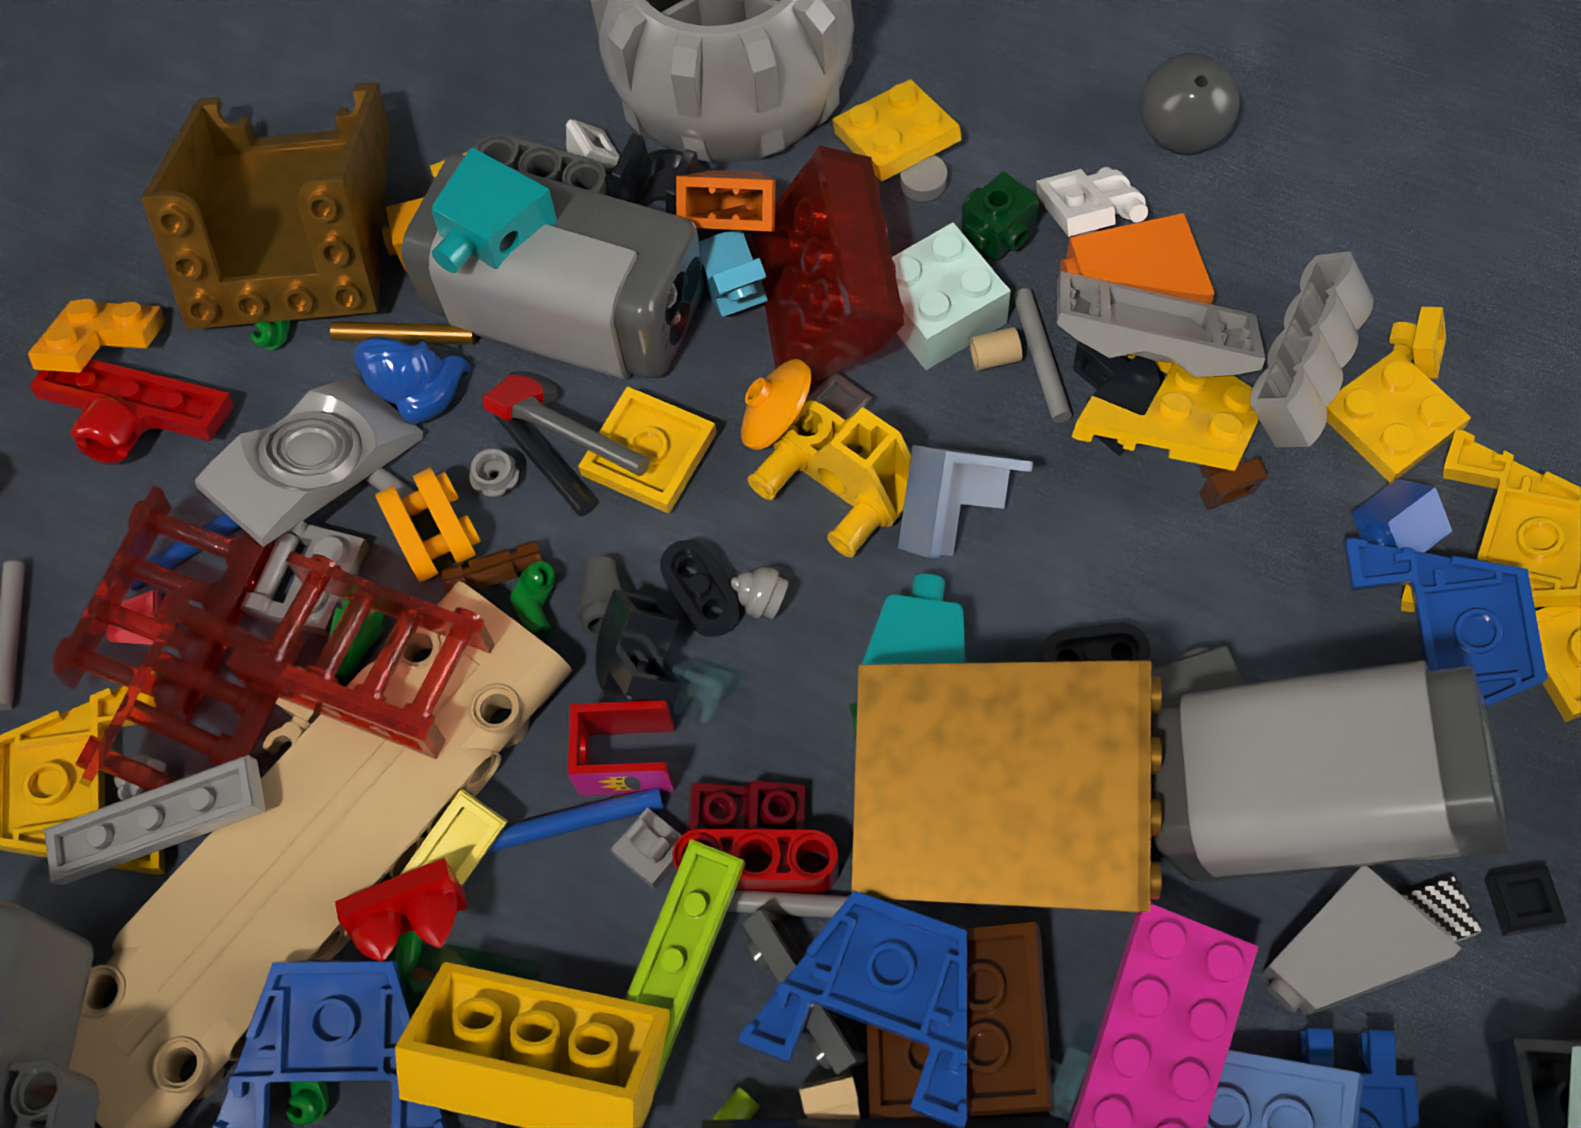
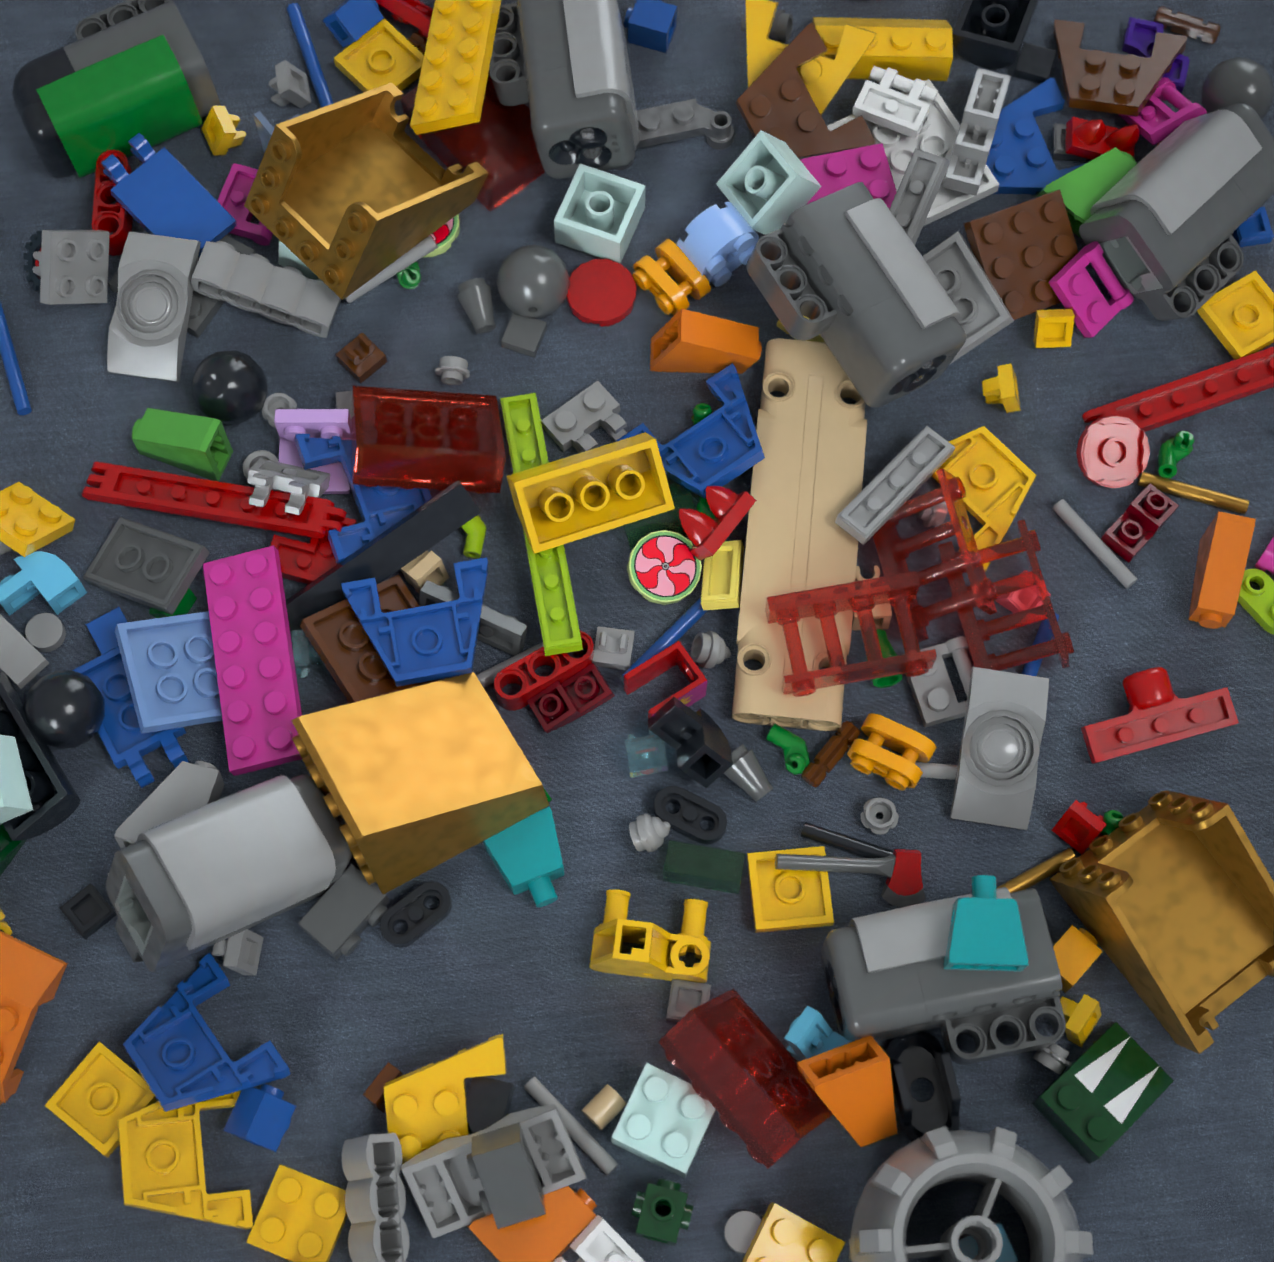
camera: 140 degrees right, 5 degrees up
(91, 324) = (1234, 754): light orange plate -> none
(301, 344) = (1079, 826): none -> red tile
(410, 376) = (980, 840): blue hair -> none
(501, 95) = (1103, 1093): none -> dark green slope
(514, 912) = (663, 567): none -> tile
(539, 770) = (709, 649): none -> light grey plate
(590, 143) = (1006, 1110): white slope -> none
(726, 522) = (703, 867): none -> clear green panel
(774, 403) = (722, 962): light orange dish -> none
(938, 486) = (574, 963): sand blue panel -> none
(1151, 289) = (507, 1176): none -> dark grey brick

